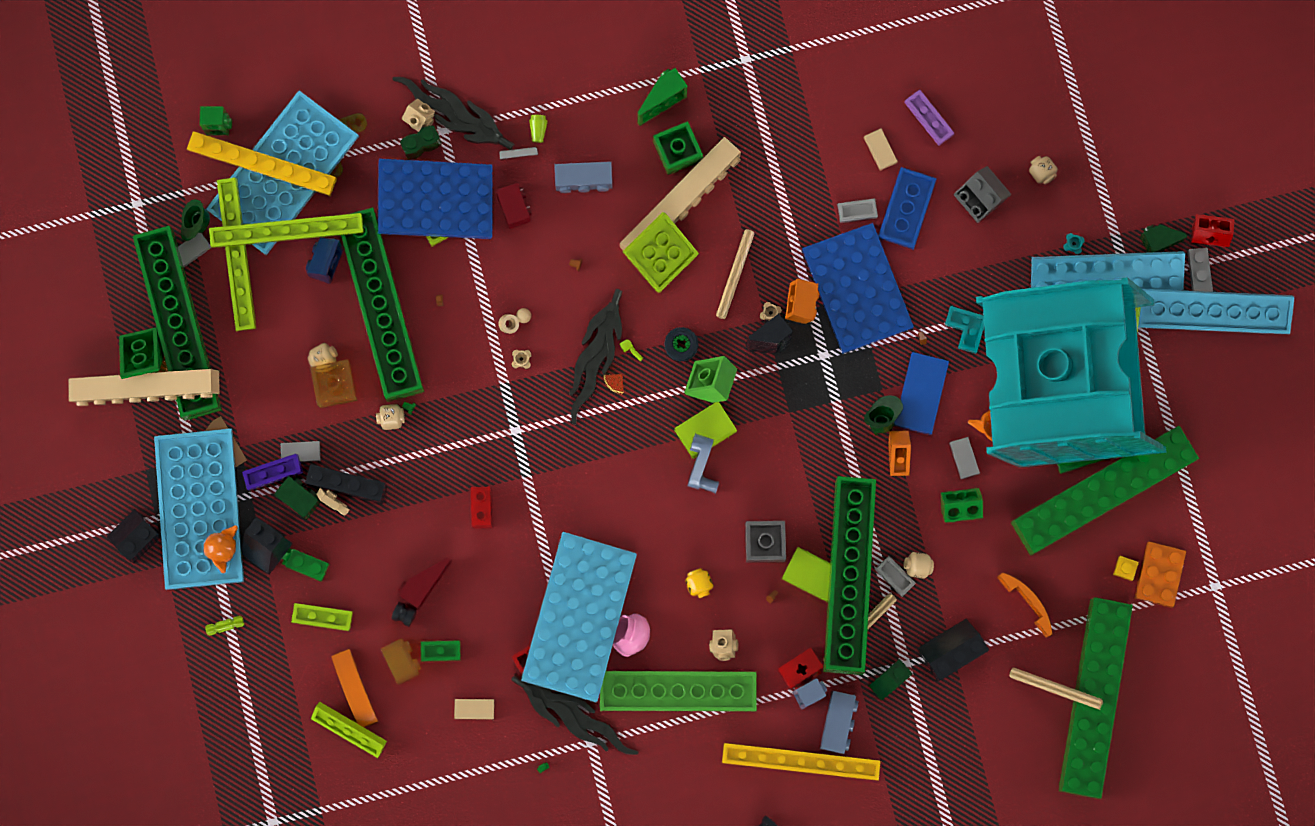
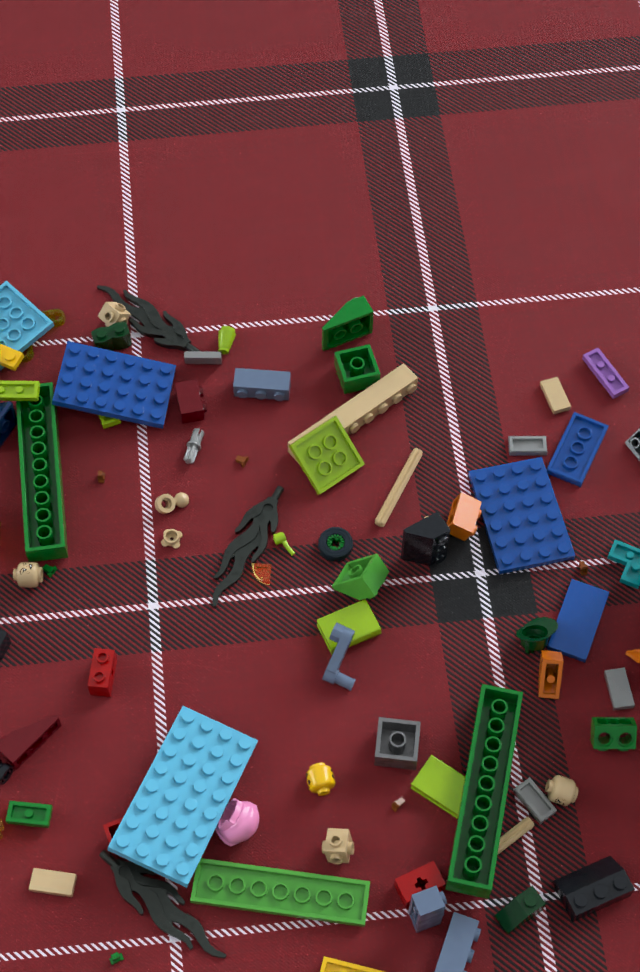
camera: 10 degrees right, 20 degrees down
(525, 255) = (193, 446): none -> light grey axle

